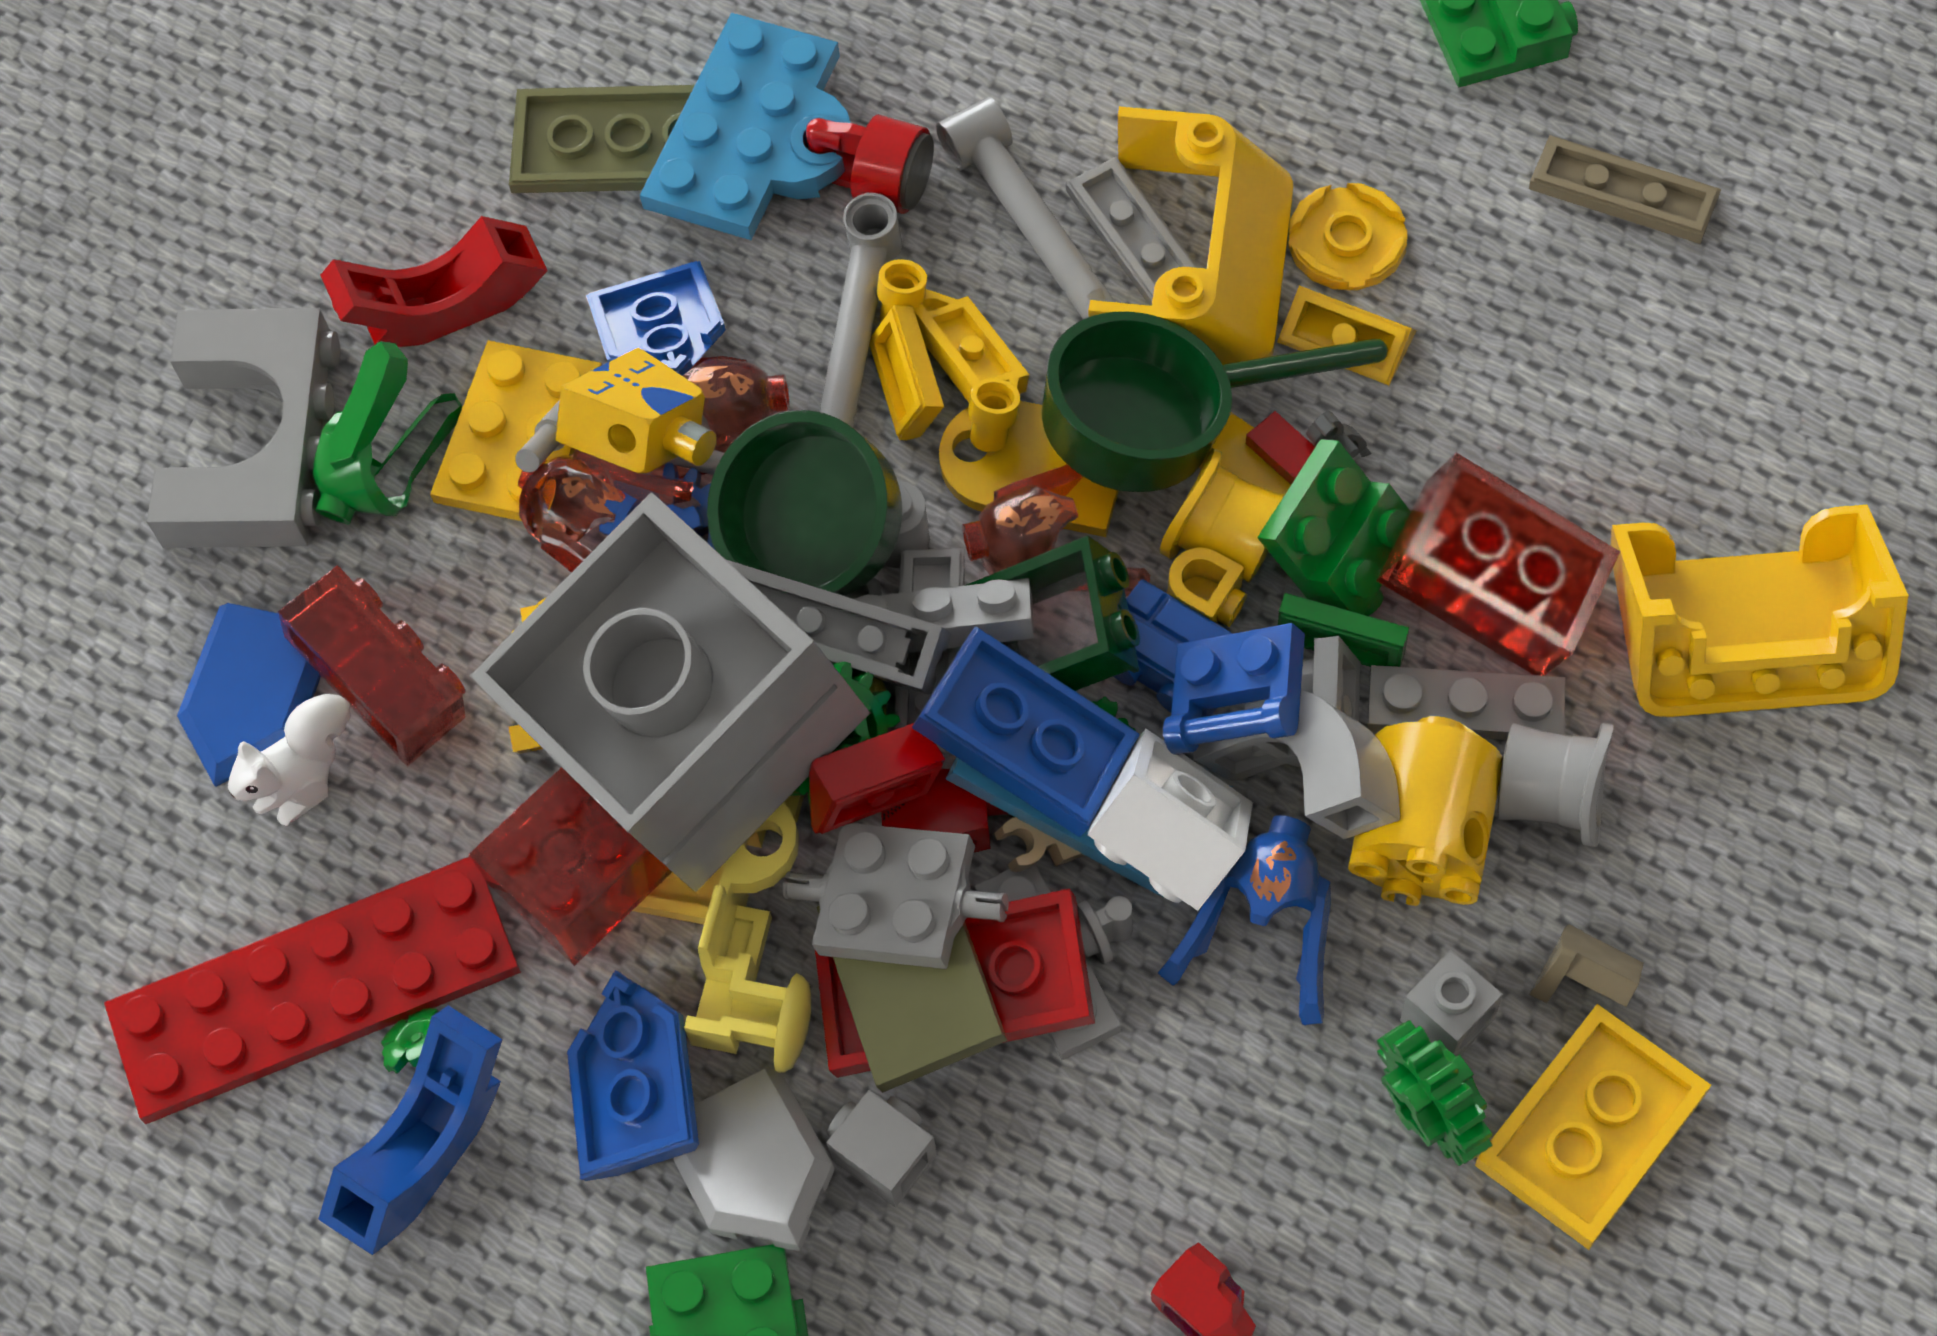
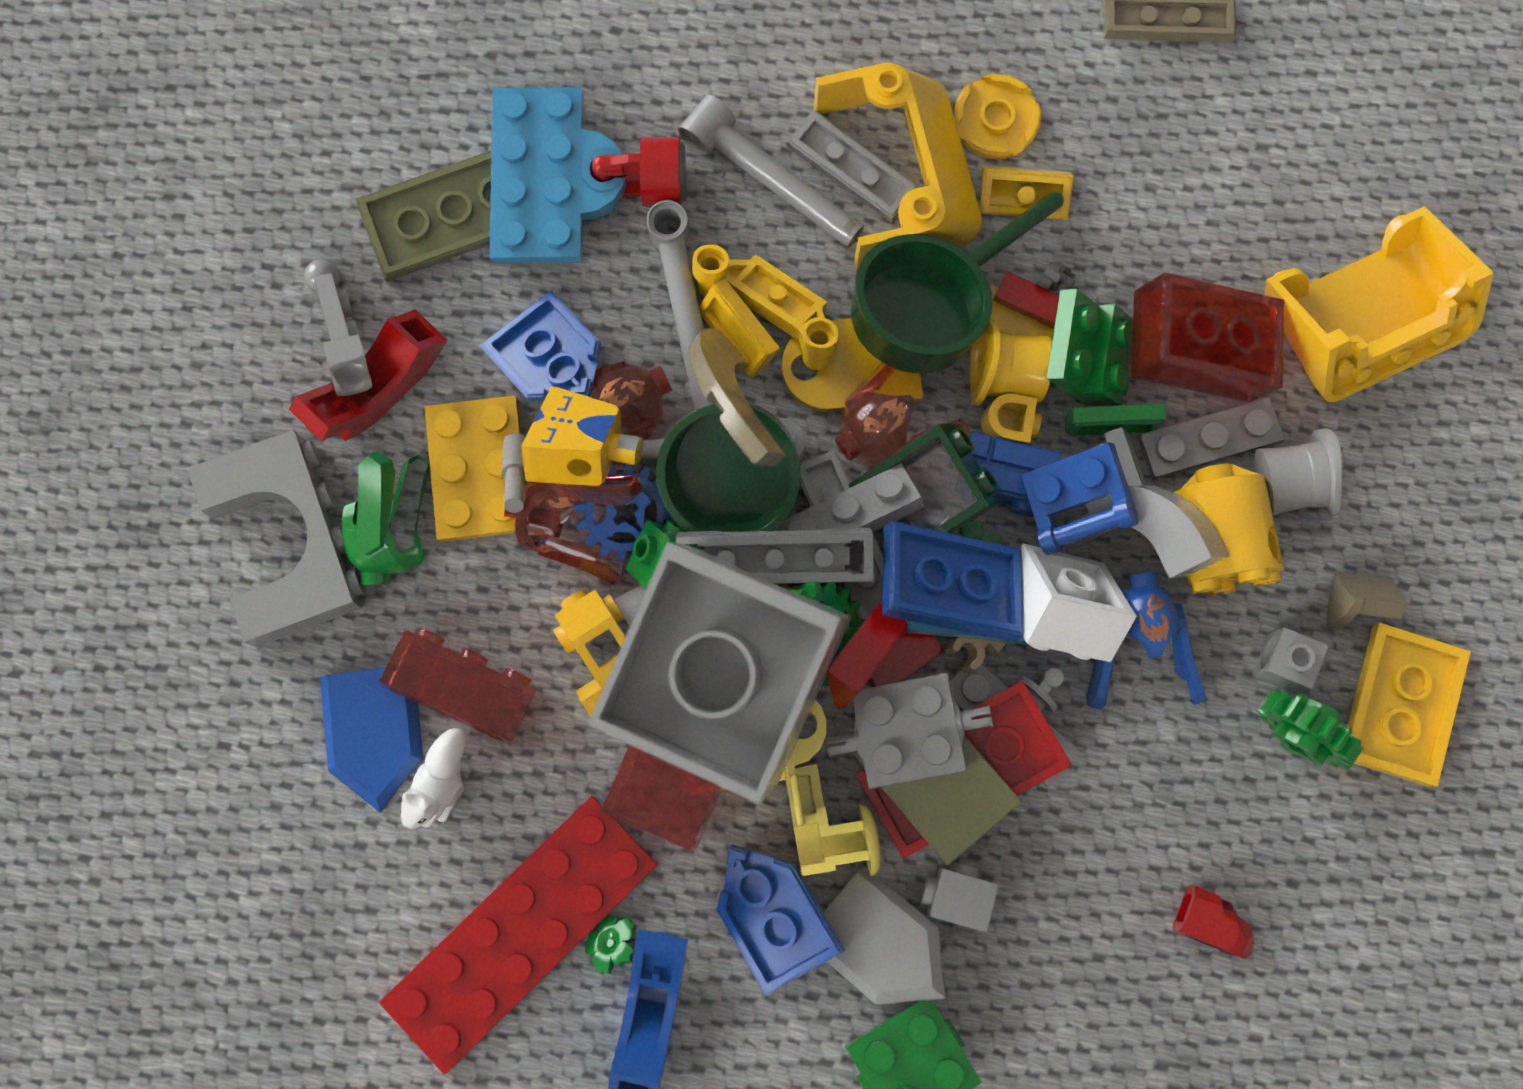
camera: 30 degrees left, 15 degrees up
(417, 231) = (345, 350): none -> light grey plate
(830, 381) = (714, 367): none -> dark tan tile

